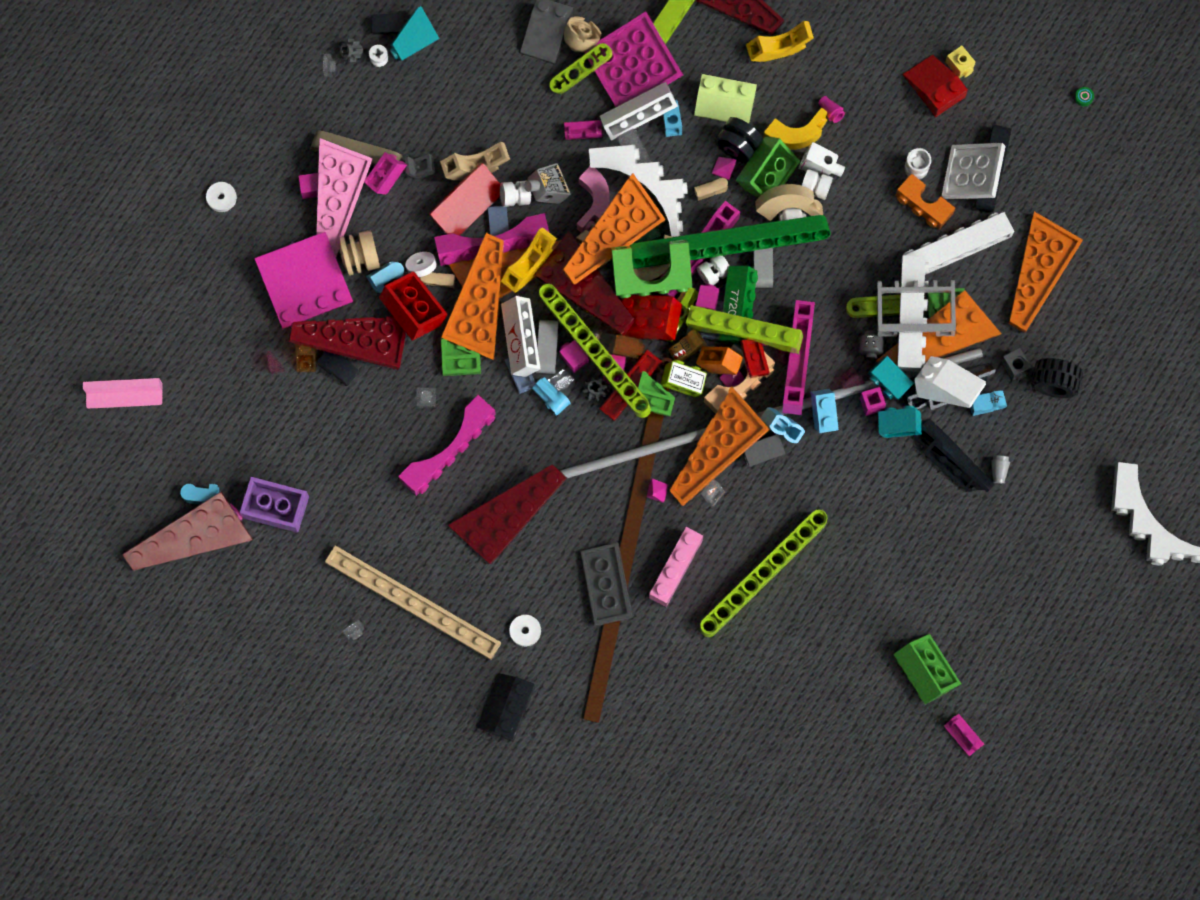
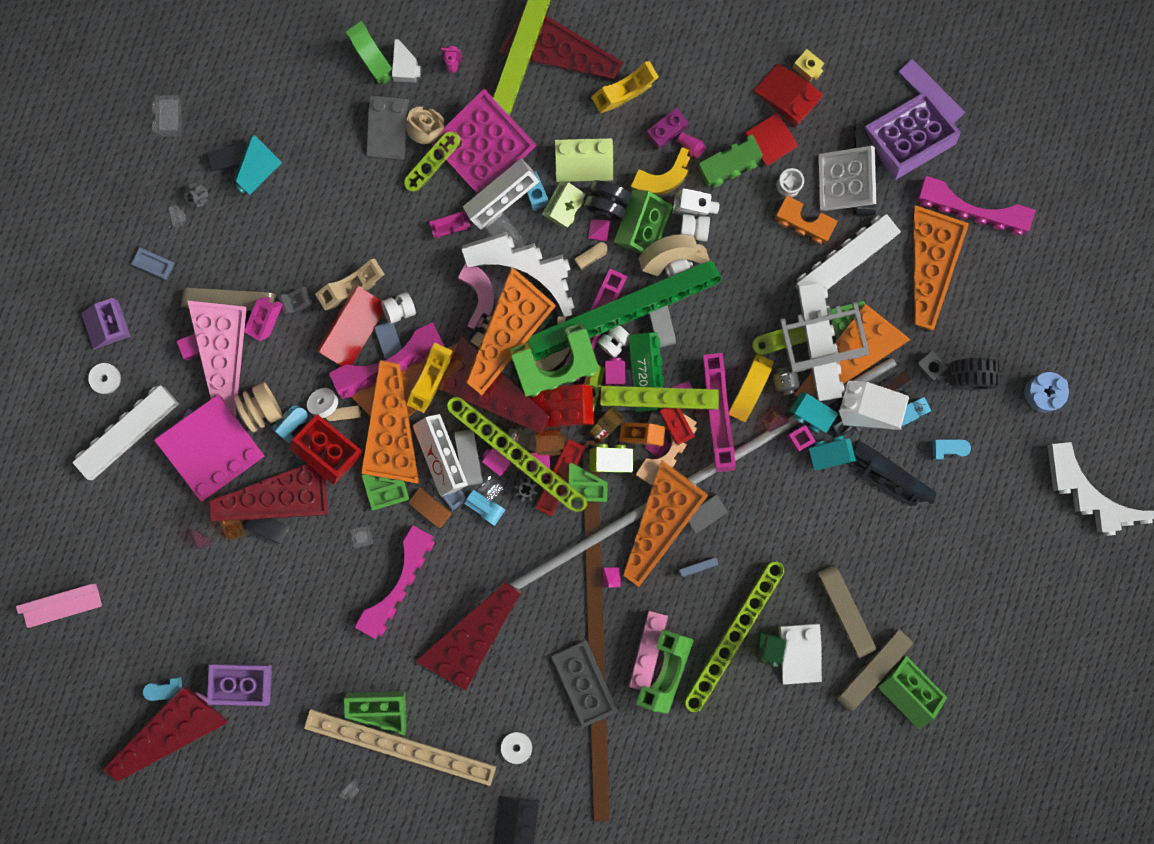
camera: 20 degrees left, 10 degrees up
(228, 249) = (125, 433): none -> white brick
(235, 146) = (105, 323): none -> medium lavender slope
(294, 103) = (152, 263): none -> sand blue tile
(379, 60) = (228, 193): white wheel -> none
(401, 559) = (378, 708): none -> bright green wedge
(498, 384) = (429, 507): none -> dark orange slope
(548, 185) = (428, 291): light grey torso -> none
(687, 137) = (564, 204): none -> yellowish green brick
(704, 572) = (662, 692): none -> bright green arch
(713, 492) = (666, 567): clear plate -> none
(744, 499) = (698, 567): none -> sand blue tile
(782, 425) = (718, 485): medium azure brick -> none
(795, 585) = (770, 649): none -> dark green arch
(811, 89) = (667, 129): none -> magenta brick
(824, 410) = (756, 460): medium azure brick -> none
(825, 605) = (802, 653): none -> white slope
(834, 343) = (751, 388): none -> yellow arch
(865, 133) = (730, 162): none -> bright green wedge
(881, 577) = (847, 611): none -> dark tan beam
(894, 638) = (873, 673): none -> dark tan beam
(909, 121) = (772, 138): none -> red slope
(963, 735) = (961, 748): dark pink hinge -> none
(1000, 467) = (938, 475): light grey cone -> none
(1018, 444) = (950, 447): none -> medium azure leg
(1045, 145) = (912, 135): none -> medium lavender slope
(1074, 113) = (922, 82): none -> medium lavender tile
(1084, 96) = (938, 72): green tile -> none
(1126, 244) = (937, 194): none -> dark pink arch
(1134, 411) = (1057, 389): none -> light blue brick

